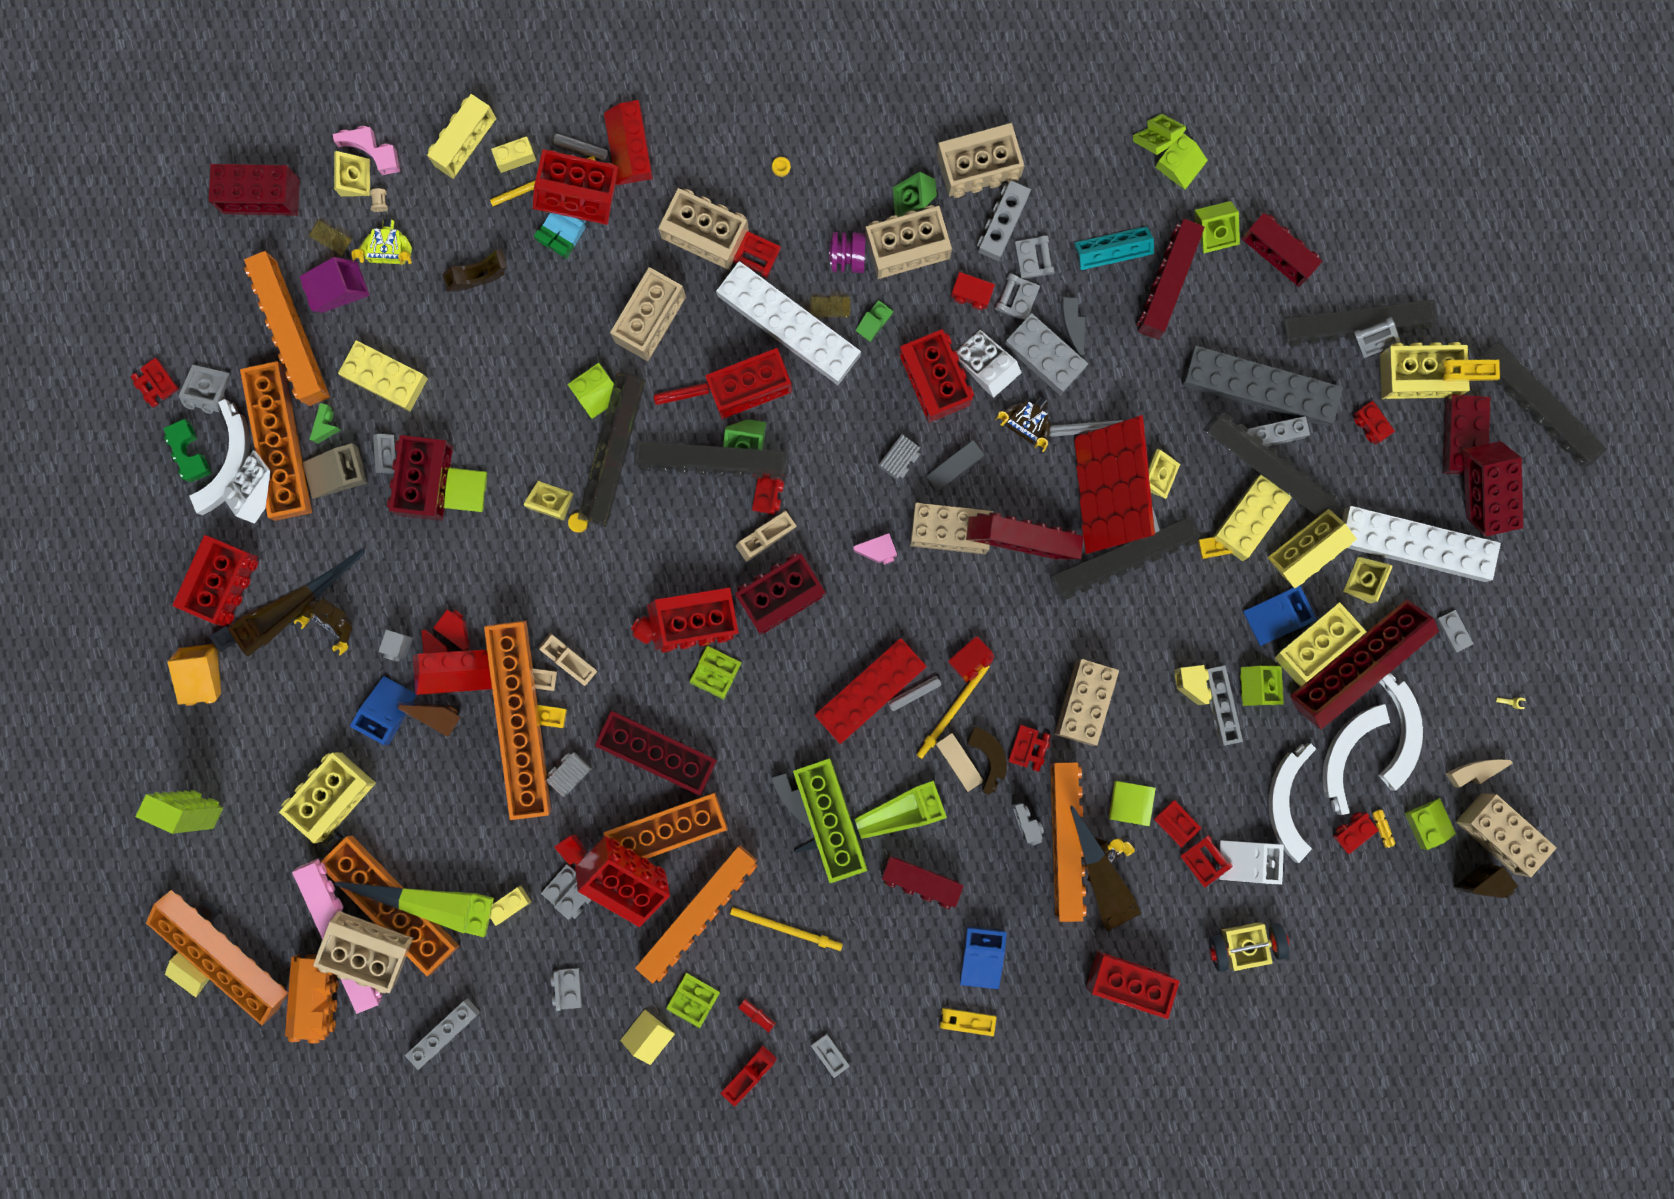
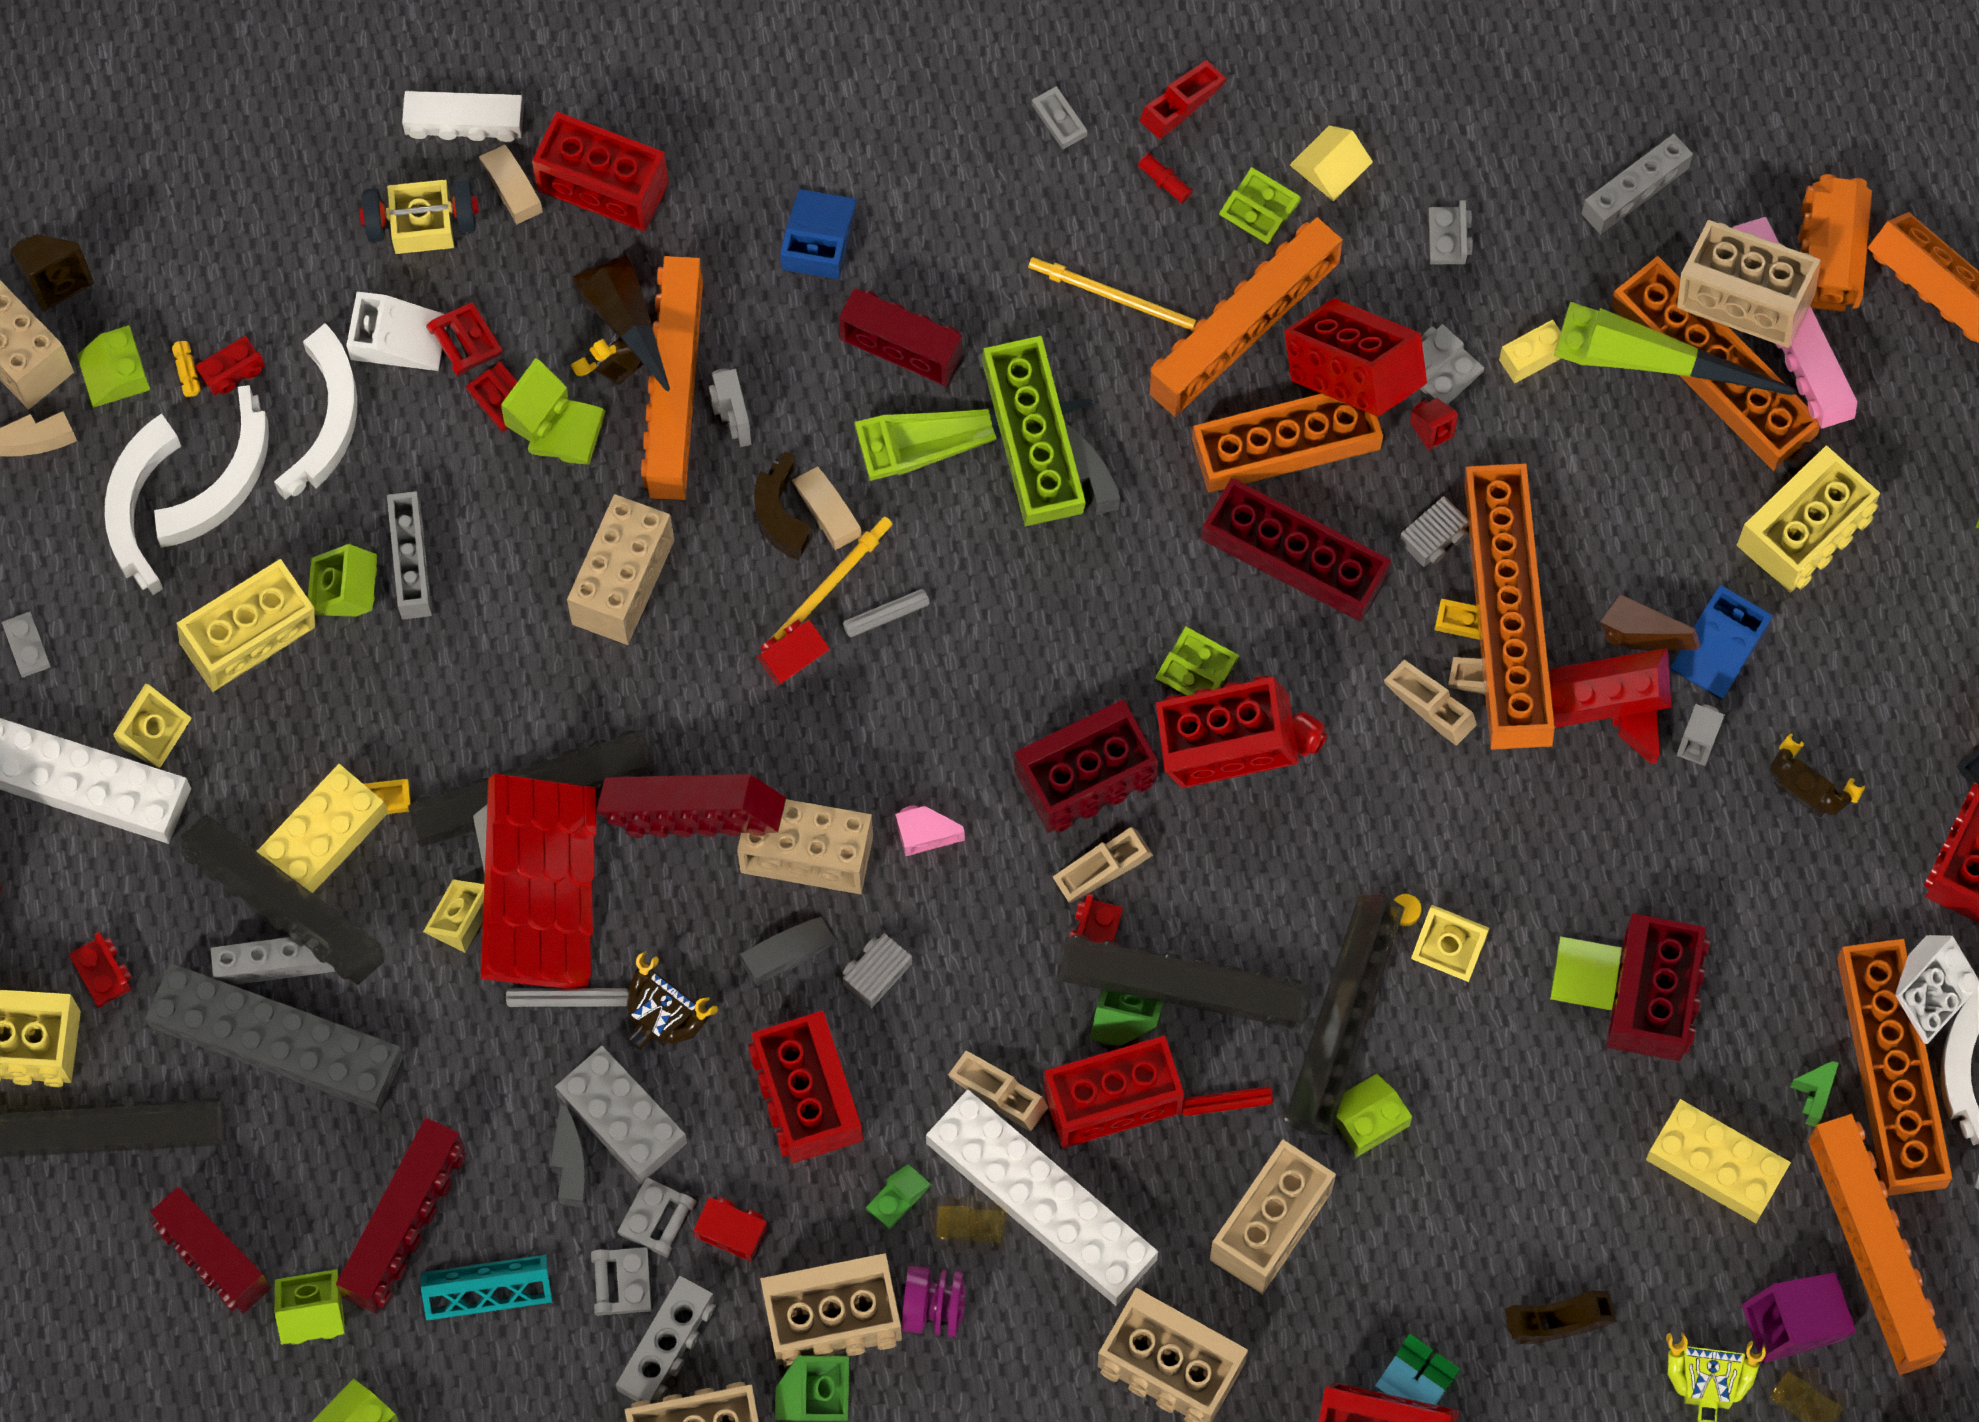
camera: 175 degrees left, 15 degrees down
(267, 622) = (1905, 790): dark brown plate -> none
(335, 471) = (1798, 1014): dark tan slope -> none
(384, 453) = (1717, 1038): light grey plate -> none
(454, 628) = (1609, 757): red slope -> none
(760, 249) = (1079, 1327): red plate -> none
(819, 388) = (999, 1090): none -> tan slope
(870, 691) = (955, 617): red brick -> none
(968, 1022) = (849, 148): yellow plate -> none
(988, 363) = (719, 1111): white slope -> none
(1024, 745) = (723, 523): red plate -> none
(1155, 813) = (534, 402): none -> lime slope
(1190, 978) = (511, 184): none -> tan slope
(1193, 683) = (450, 589): light yellow slope -> none
(1228, 1025) = (463, 115): none -> white brick
(1280, 615) = (299, 683): blue slope -> none
(1312, 548) = (236, 768): light yellow brick -> none
(1364, 663) = (147, 613): dark red brick -> none
(1377, 342) = (75, 1095): light grey plate -> none

